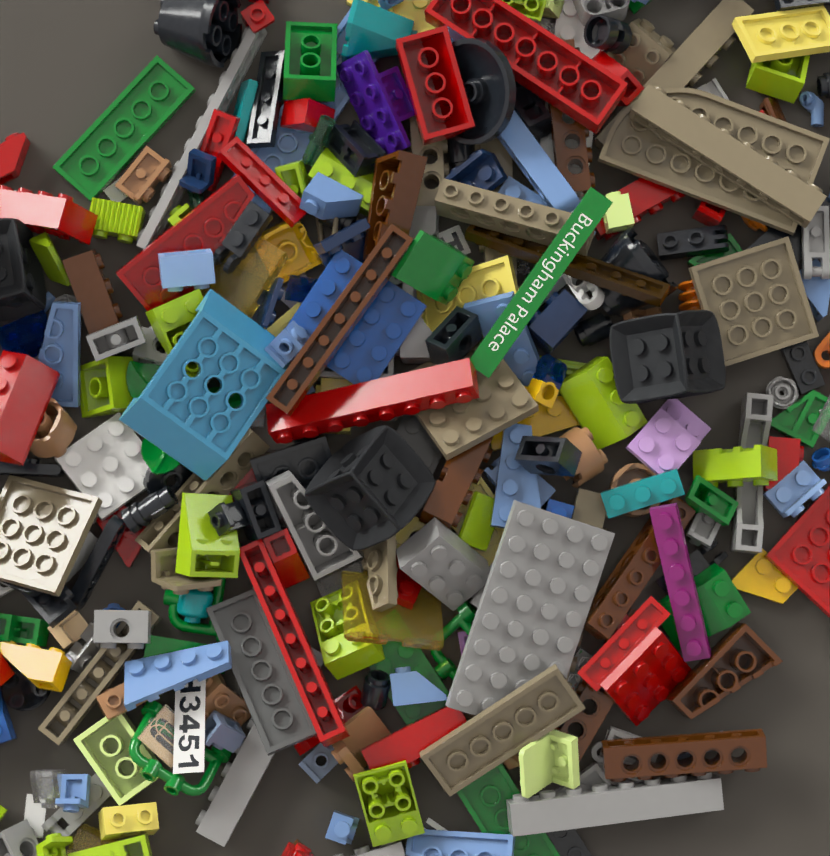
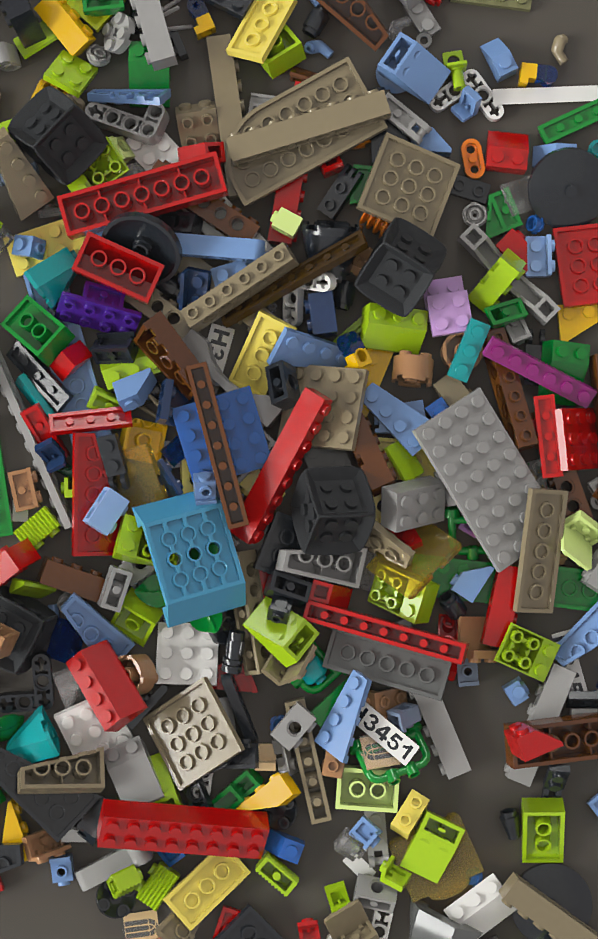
camera: 45 degrees left, 5 degrees up
(318, 139) = (91, 365): clear green axle -> none
(433, 267) = (230, 361): green slope -> none
(540, 281) = (294, 305): green tile -> none
(548, 455) = (401, 388): black brick -> none
(607, 34) = (171, 135): black wheel -> none

